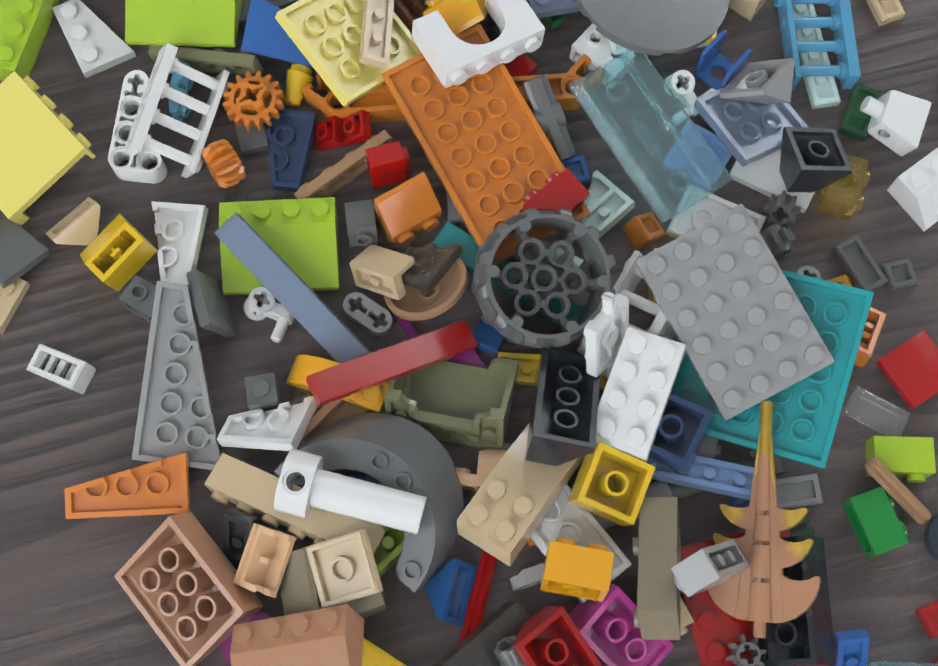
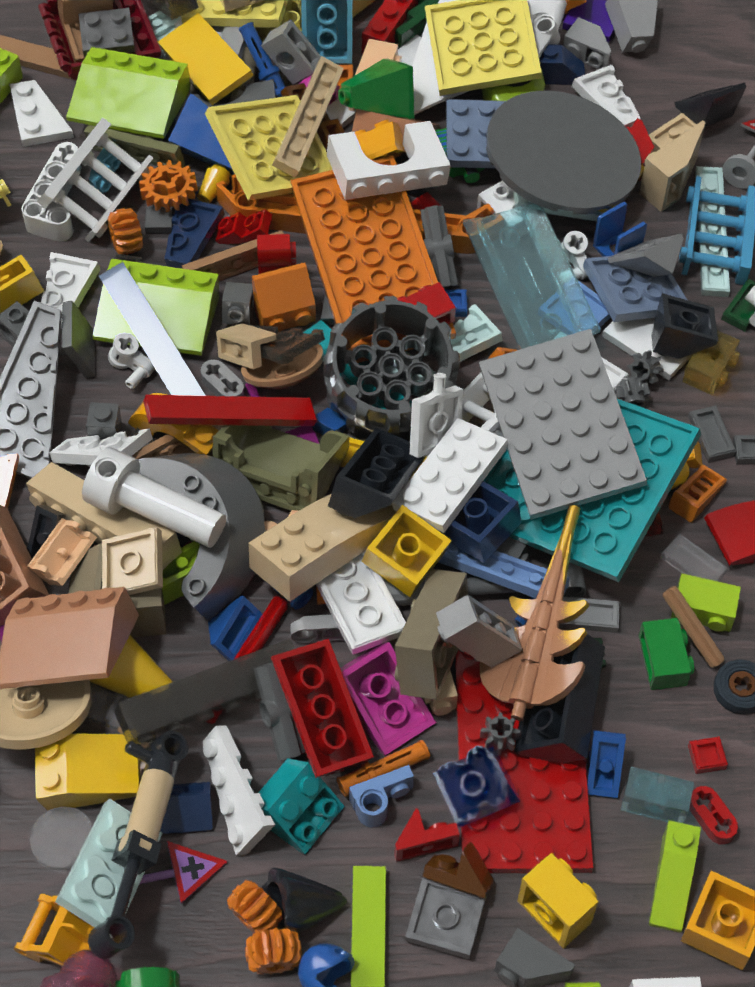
camera: 15 degrees right, 15 degrees down
(577, 570) = (349, 609): light orange brick -> none

